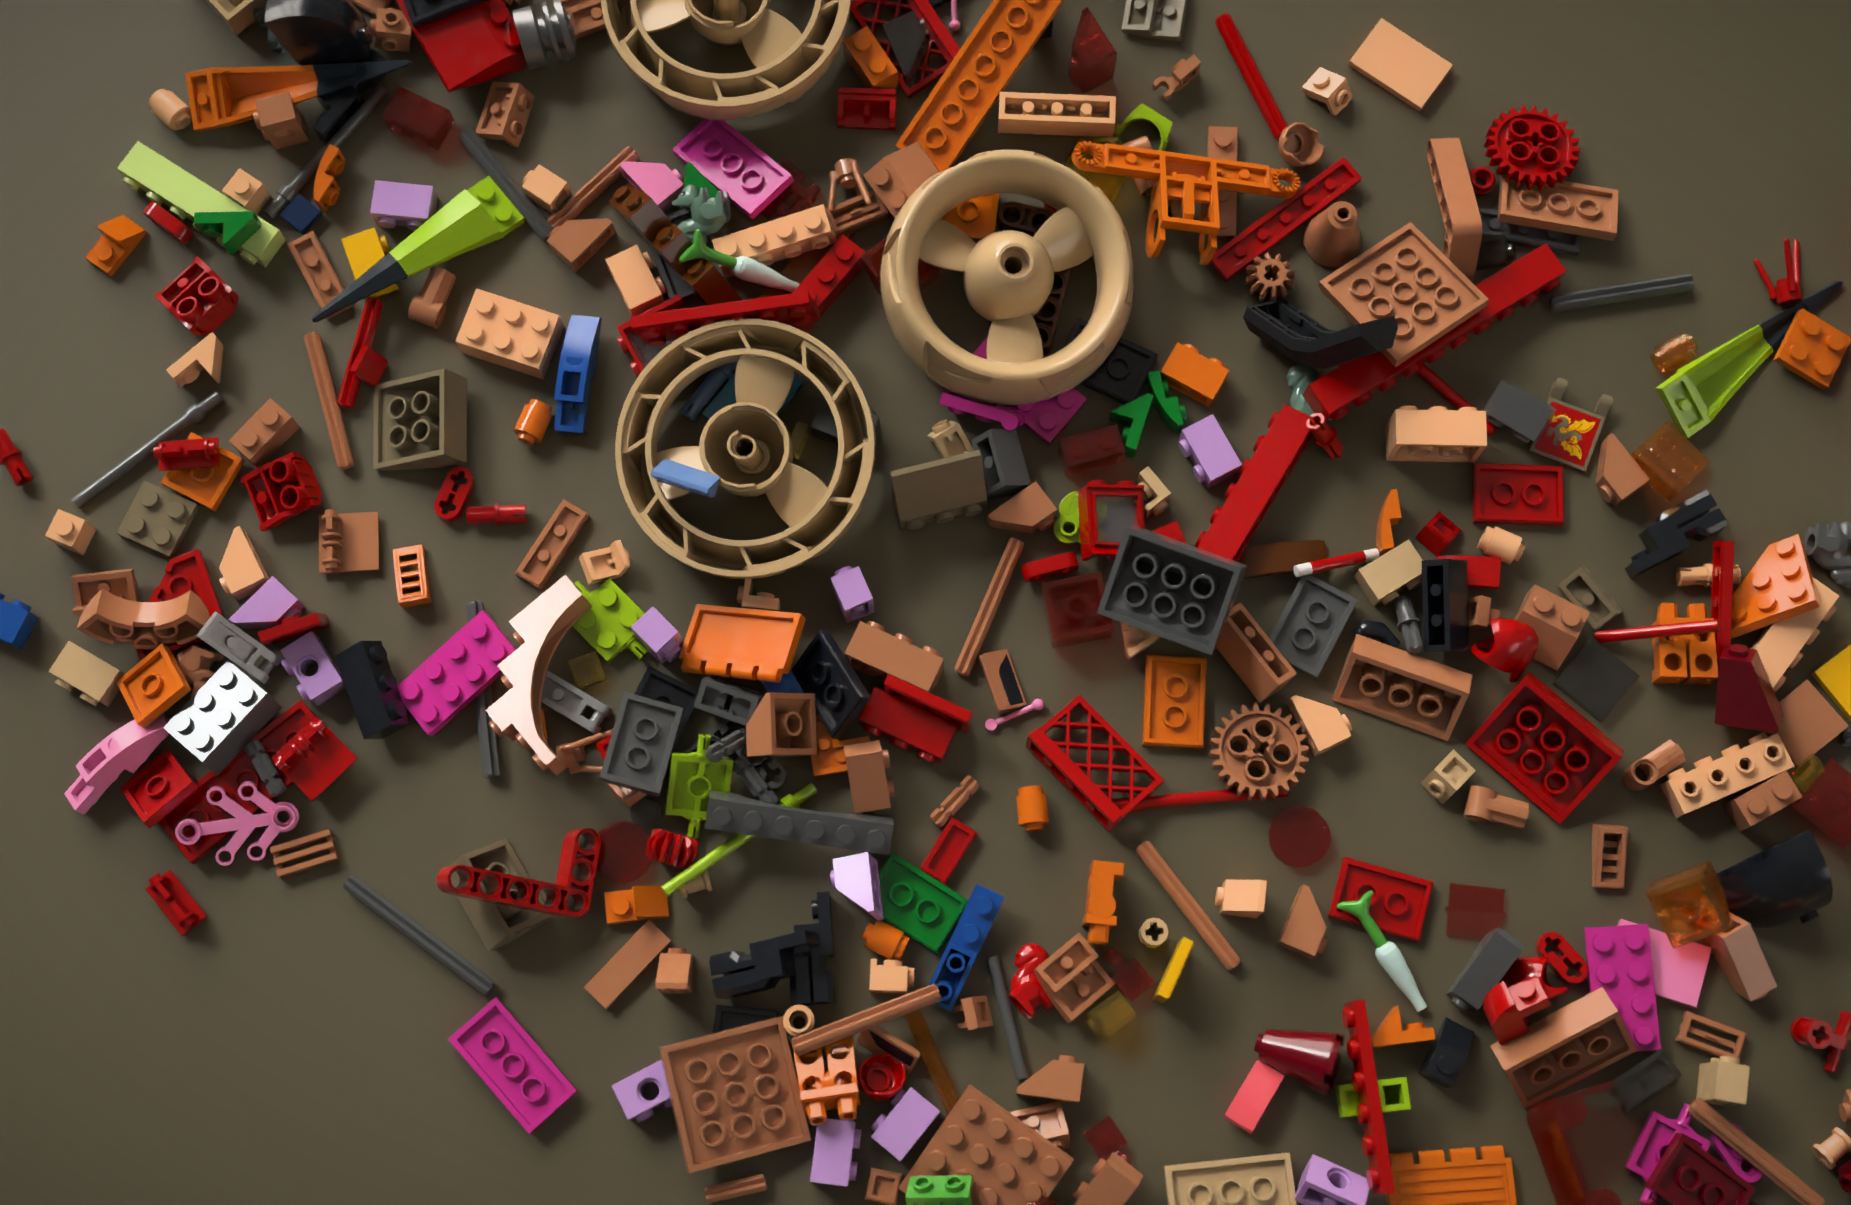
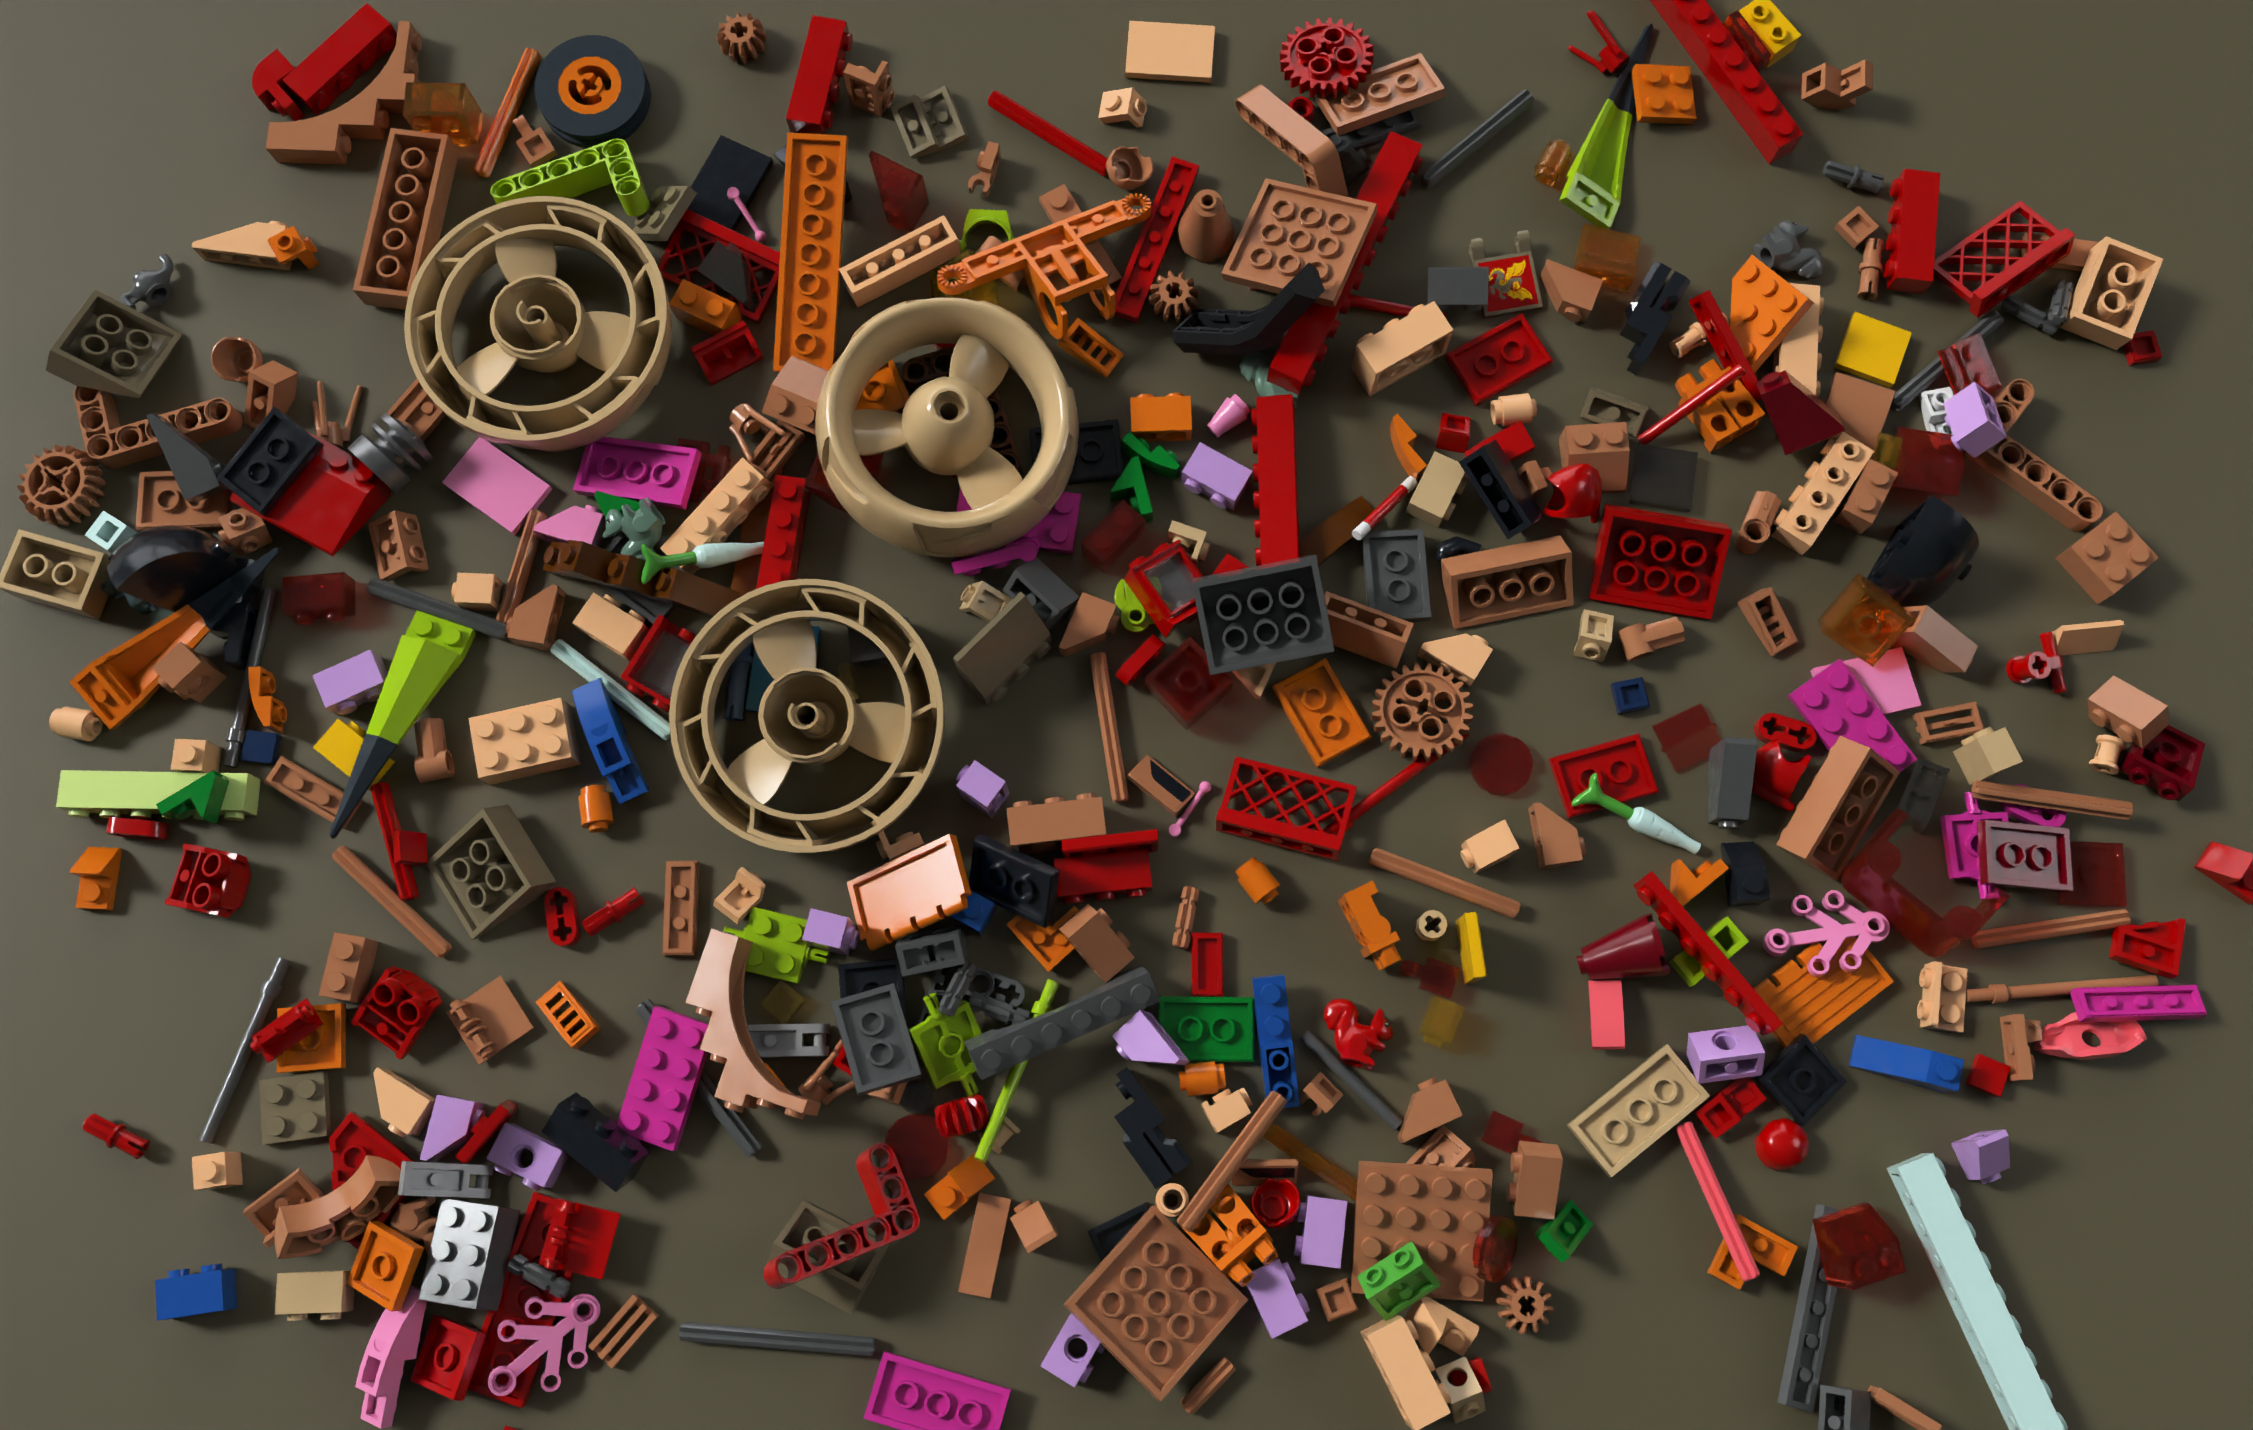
camera: 30 degrees left, 0 degrees up
(206, 355) = (246, 930): light nougat slope -> none
(607, 336) = (616, 691): none -> light aqua axle
(613, 110) = (497, 485): none -> bright pink tile
(670, 325) = (662, 652): red plate -> none
(686, 478) = (771, 774): medium blue slope -> none
(763, 968) = (1115, 1161): black plate -> none
(783, 726) = (994, 944): nougat slope -> none
(1073, 977) = (1388, 1009): nougat slope -> none
(1177, 267) = (1097, 341): none -> orange slope
(1252, 406) = (1230, 414): none -> bright pink cone
(1325, 436) = (1308, 404): red axle -> none
(1408, 624) = (1479, 524): dark grey axle -> none
(1447, 846) = (1630, 695): none -> dark blue tile
(1491, 1147) = (1830, 931): none -> bright pink plant
(1509, 1006) = (1773, 801): red brick -> none

